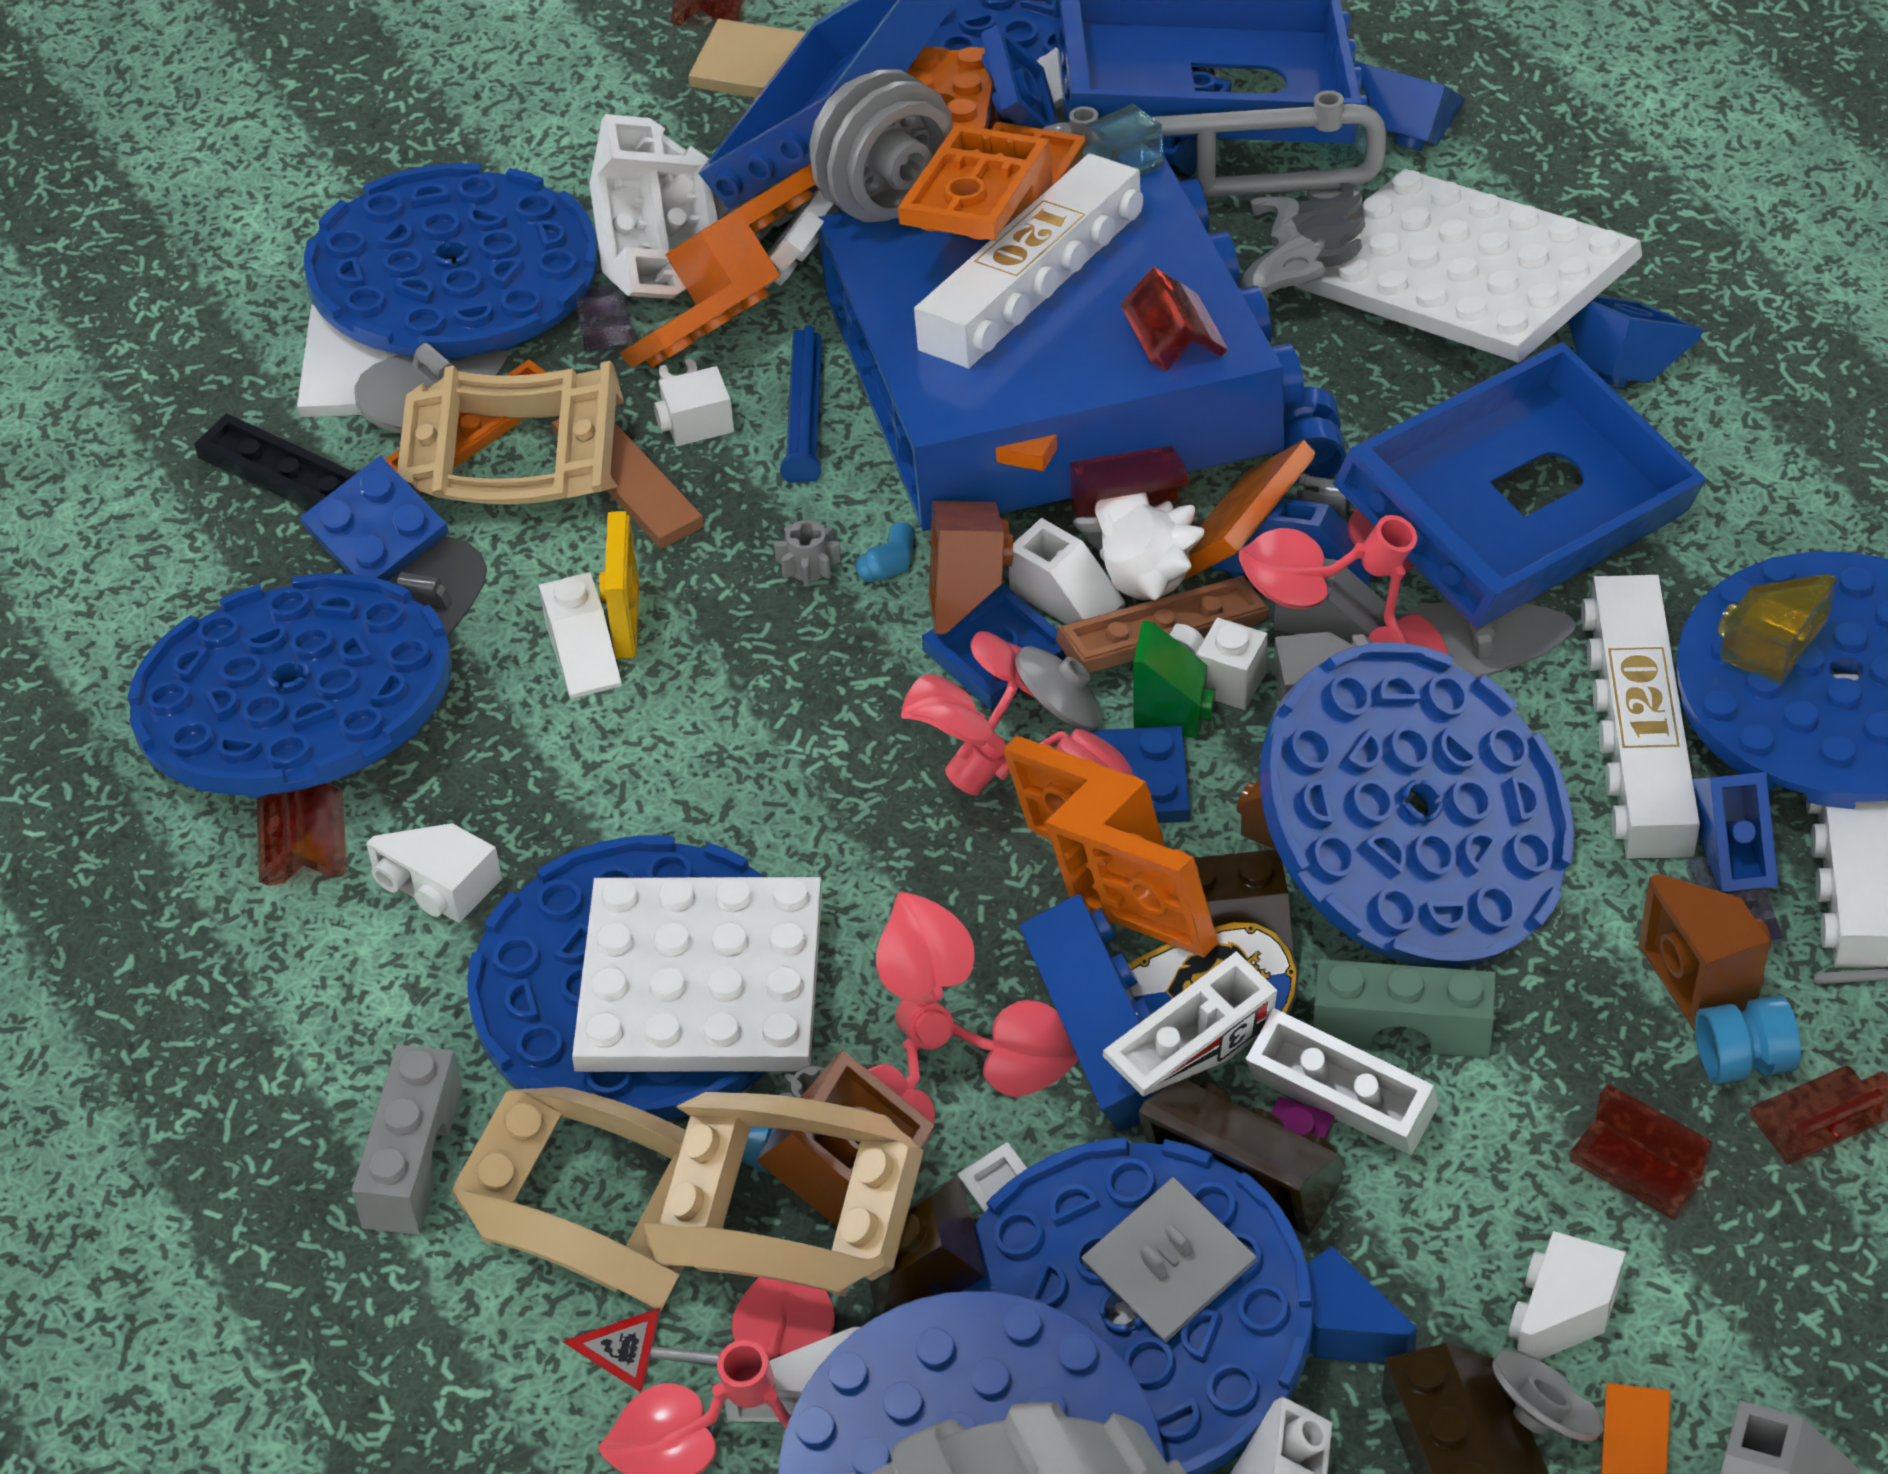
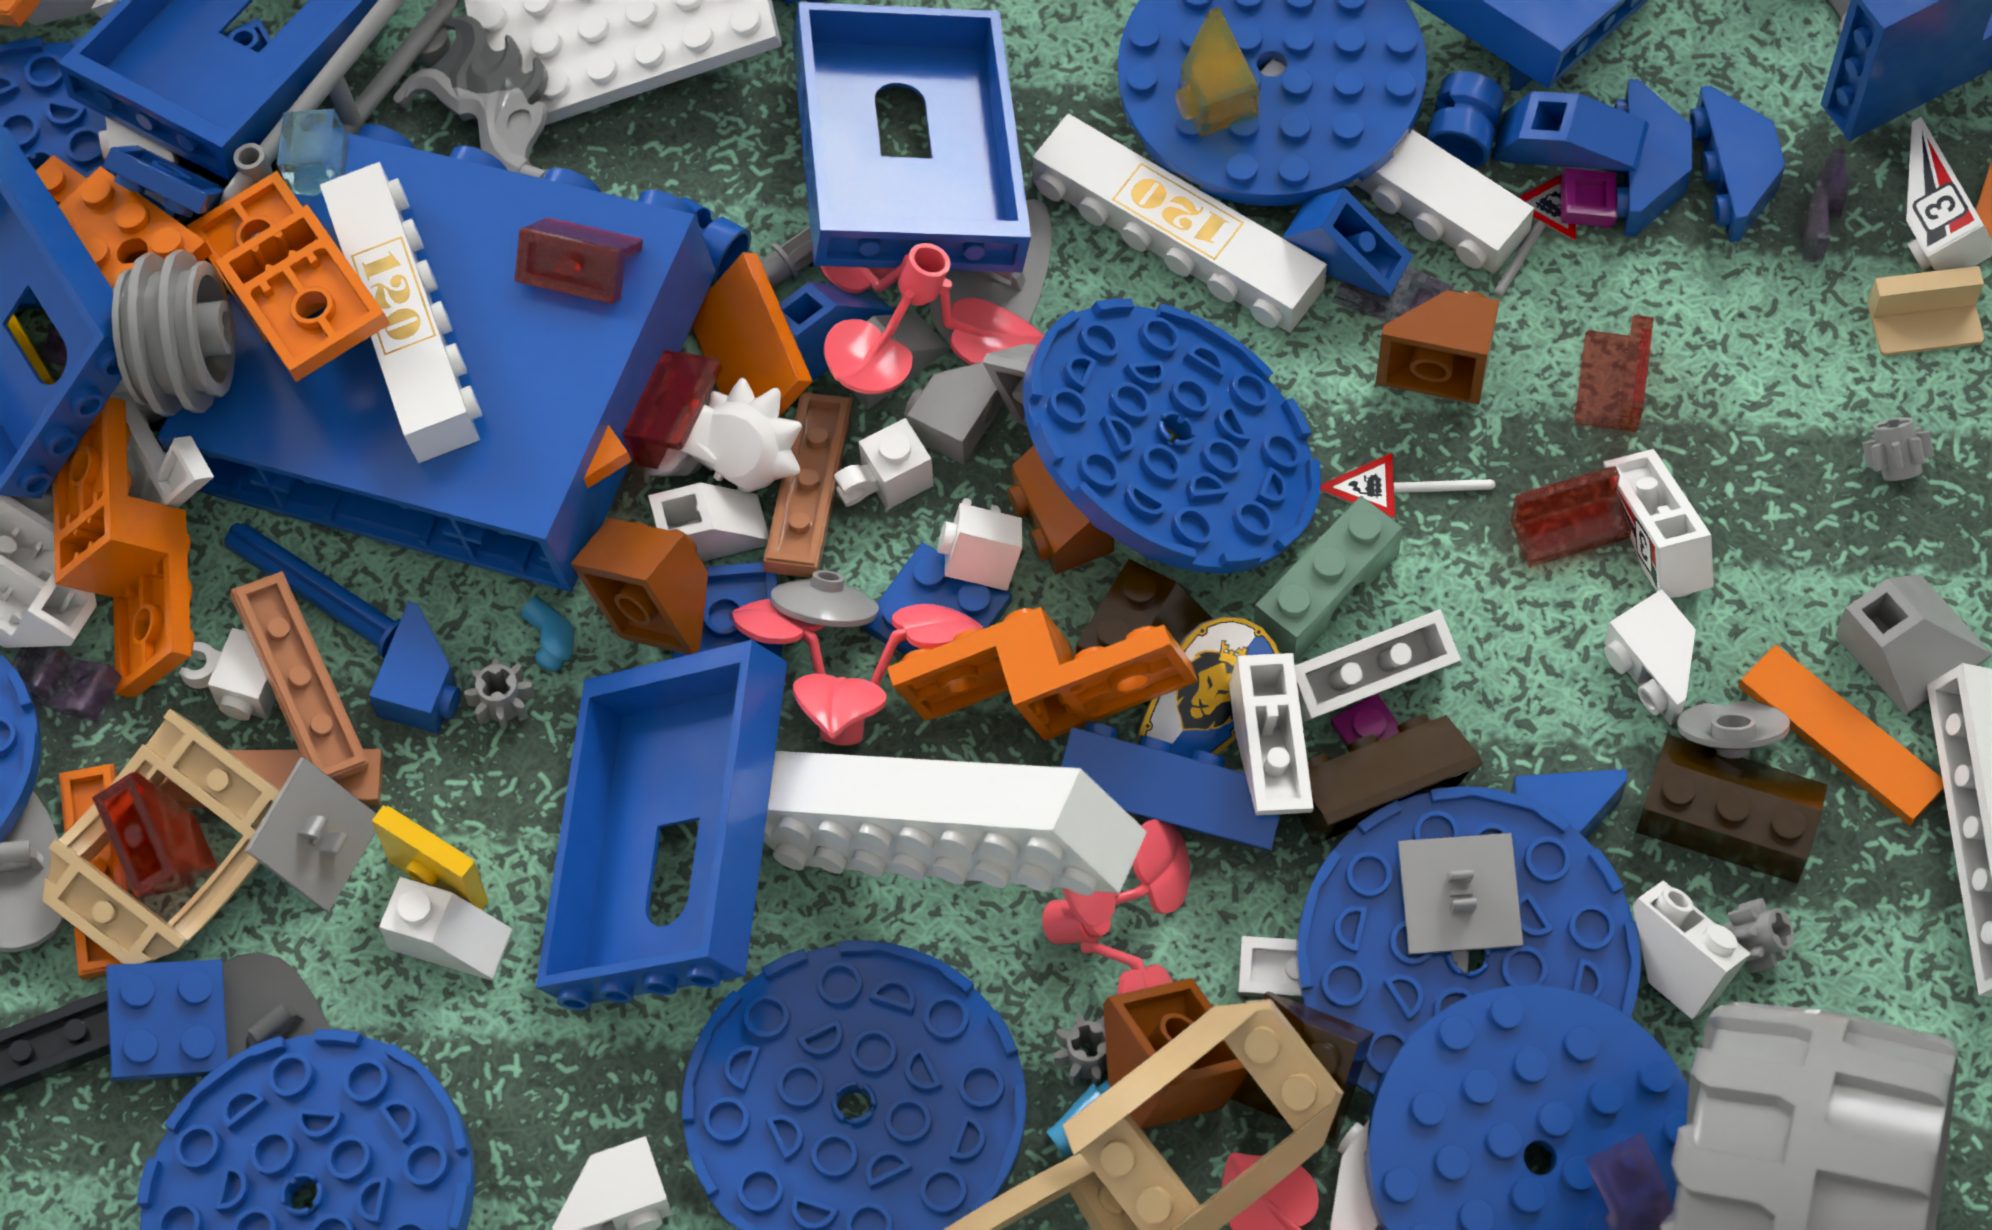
camera: 55 degrees left, 15 degrees up
(505, 423) = (153, 836): none -> clear red slope
(575, 508) = (313, 834): none -> light grey piece
(699, 975) = (905, 1058): white plate -> none
(706, 426) = (298, 676): none -> nougat tile
(761, 689) = (648, 755): none -> blue panel
(780, 493) = (415, 677): none -> blue slope
(877, 816) = (949, 821): none -> white brick
(1169, 684) = (888, 525): green slope -> none
(1207, 756) = (981, 545): none -> brick
(1537, 1000) = (1376, 485): none -> piece
(1698, 1227) = (1664, 526): none -> white slope
(1757, 1038) = (1530, 376): dark azure wheel -> none

